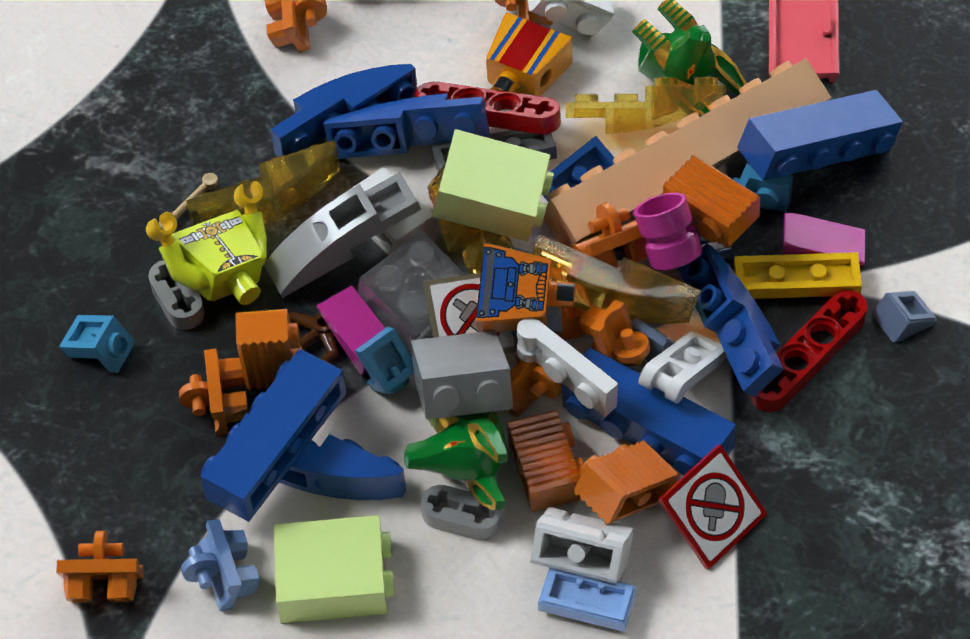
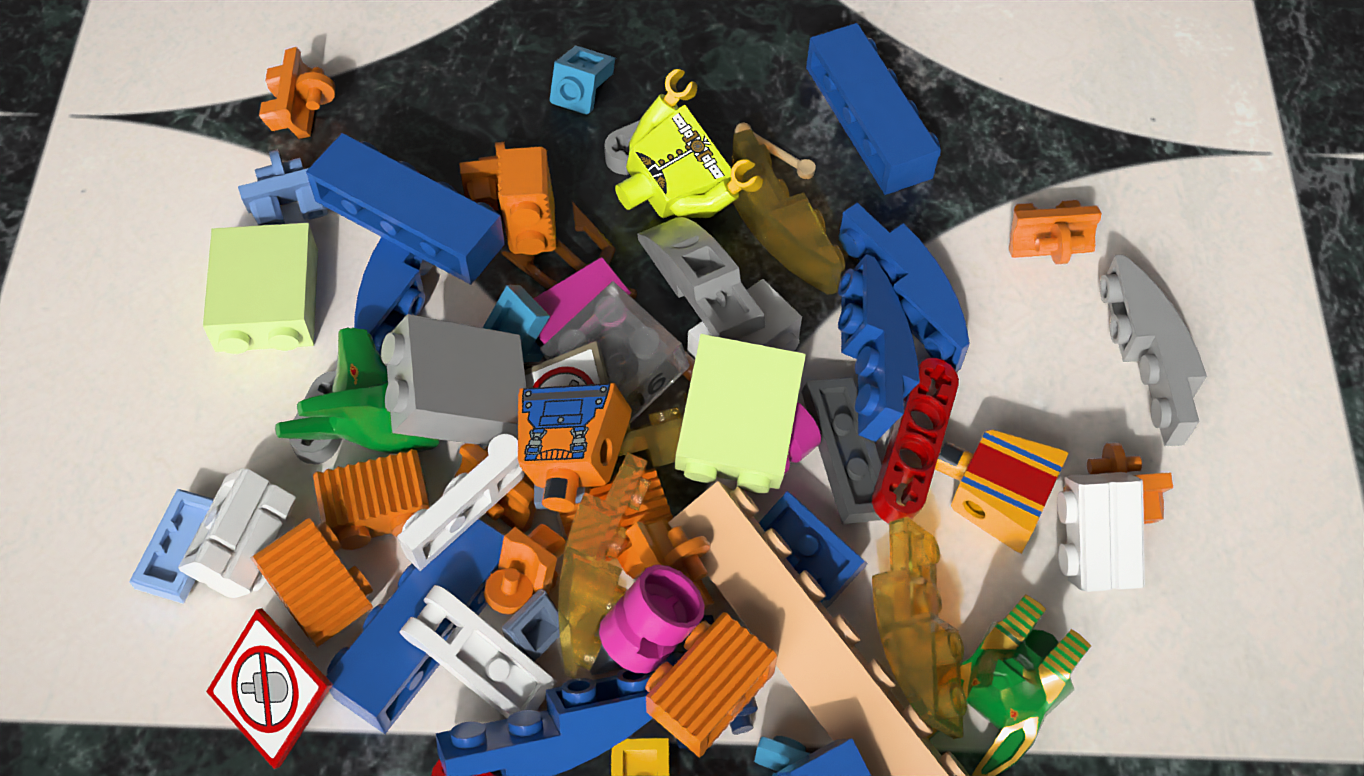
camera: 85 degrees right, 5 degrees up
(154, 127) = (872, 108): none -> blue brick

